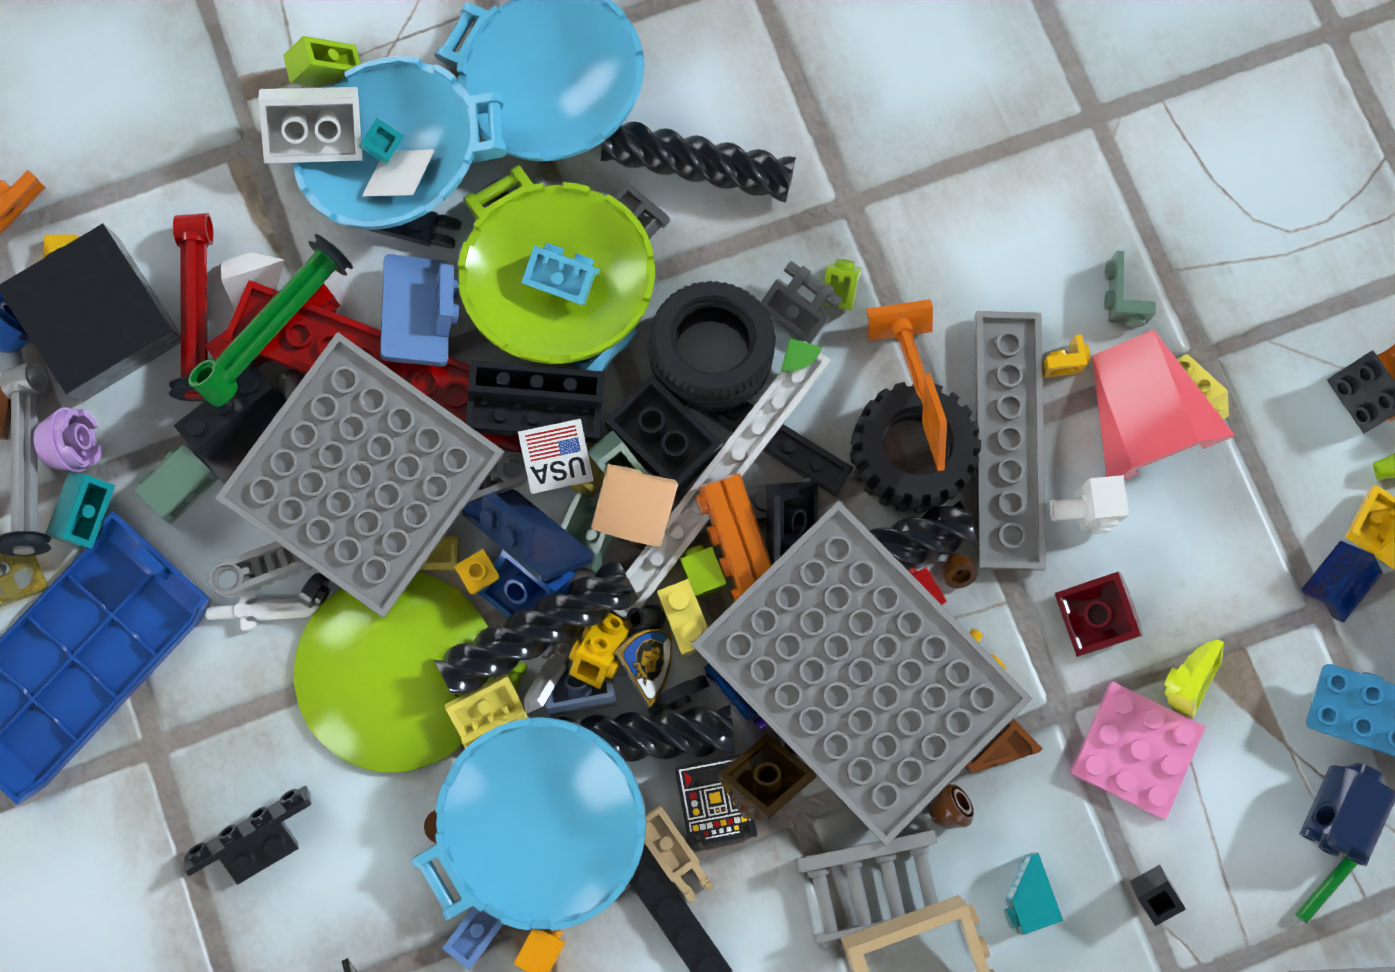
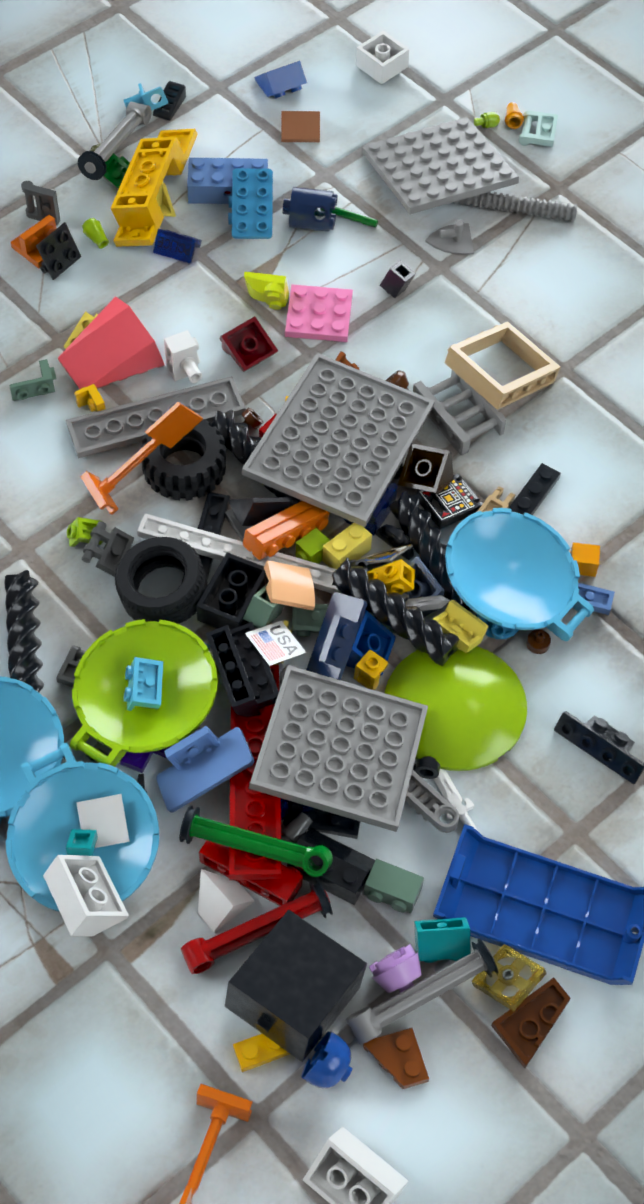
camera: 110 degrees left, 20 degrees down
(319, 61) = (28, 918): lime slope -> none
(799, 356) = (150, 527): bright green tile -> none
(1031, 898) = (426, 336): teal slope -> none

